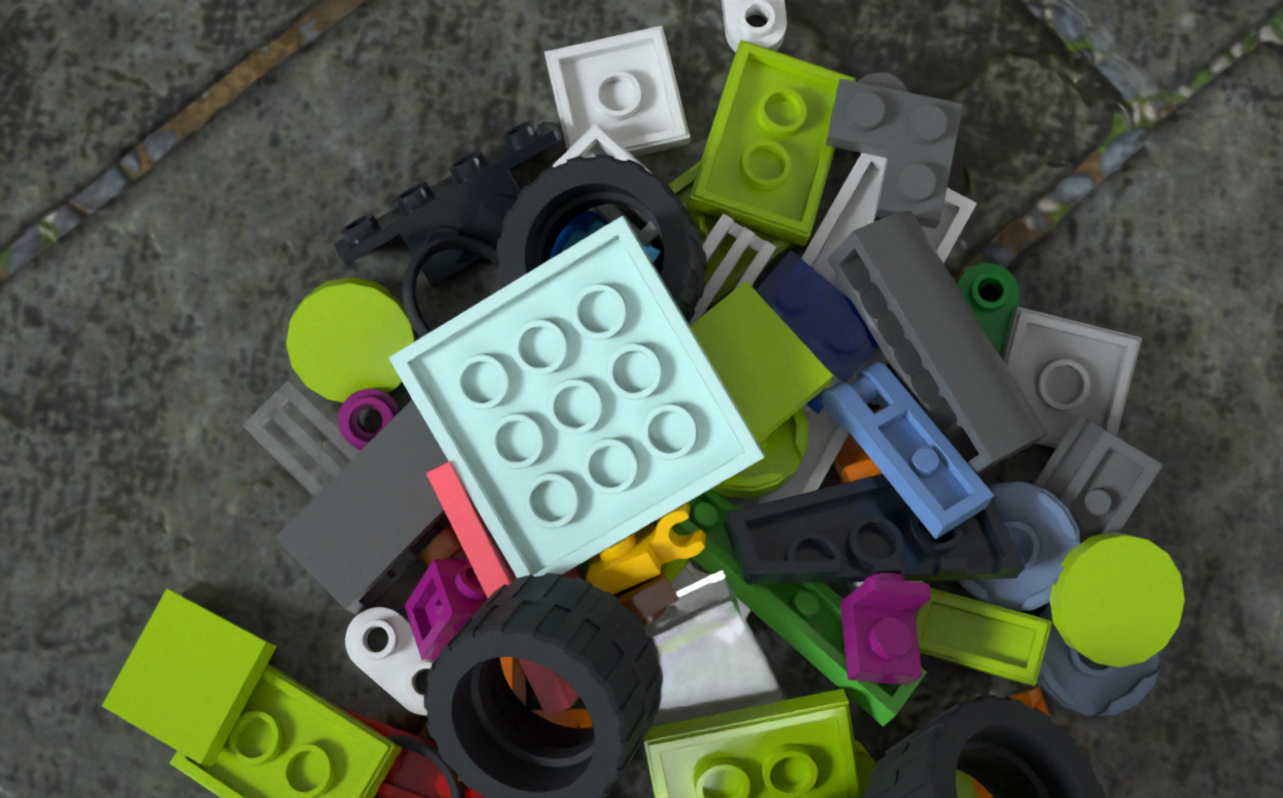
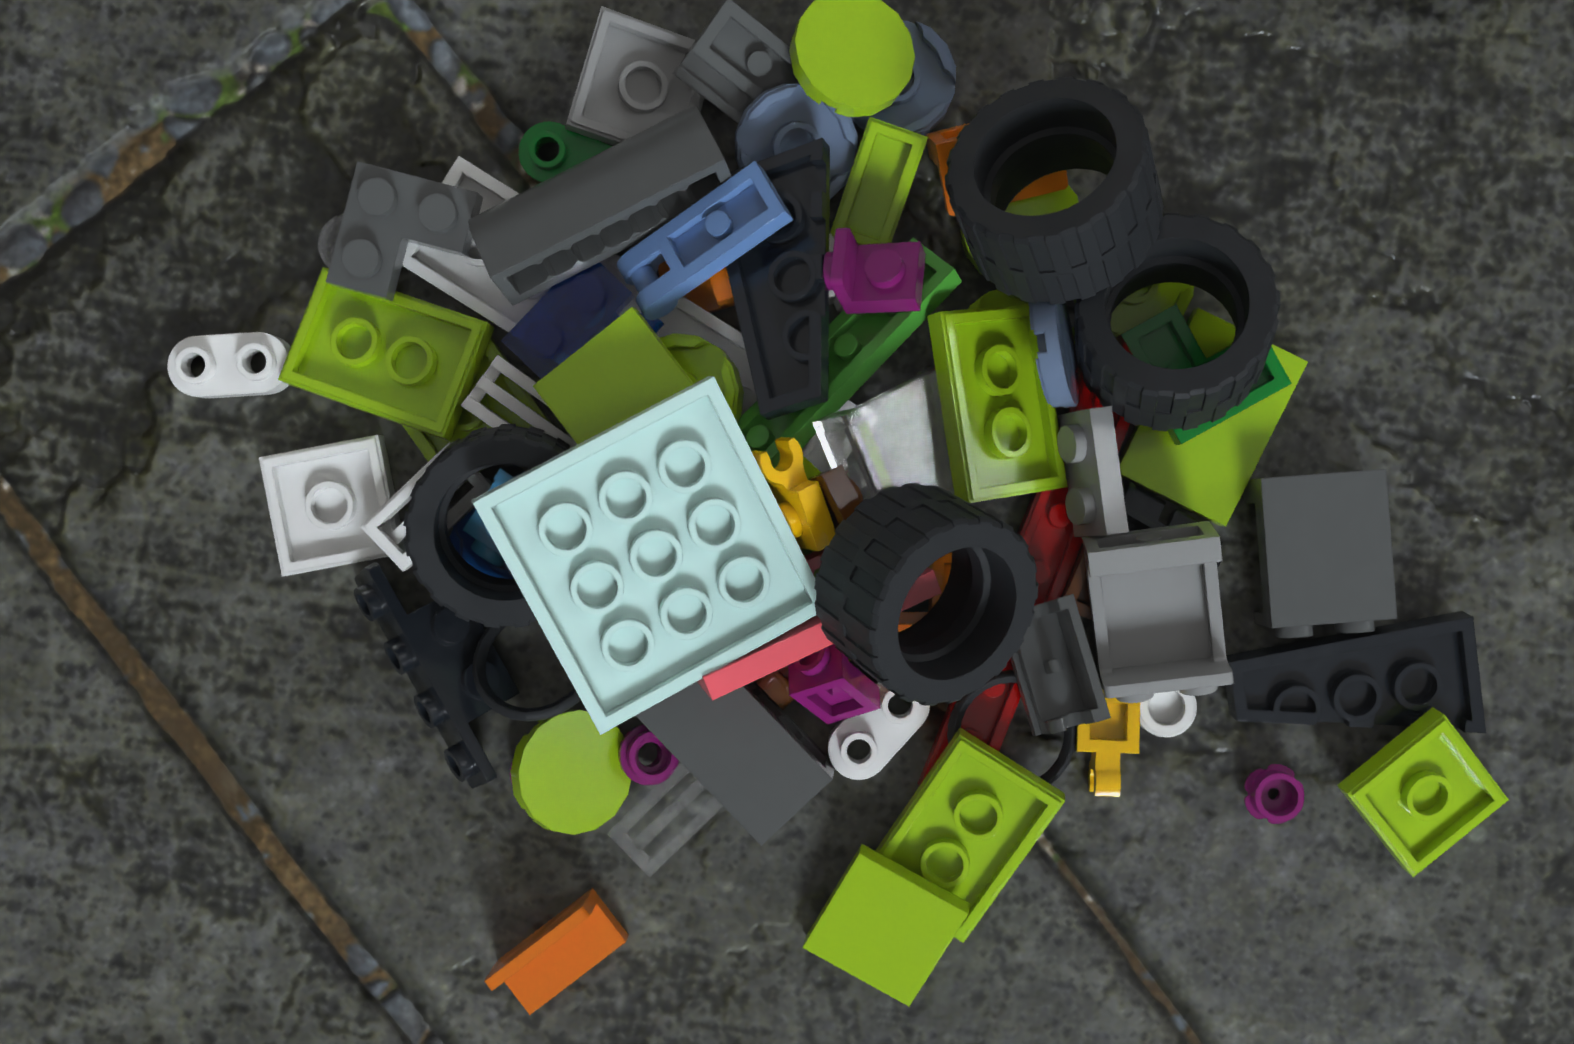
camera: 90 degrees left, 10 degrees up
(165, 337) = (559, 952): none -> orange panel

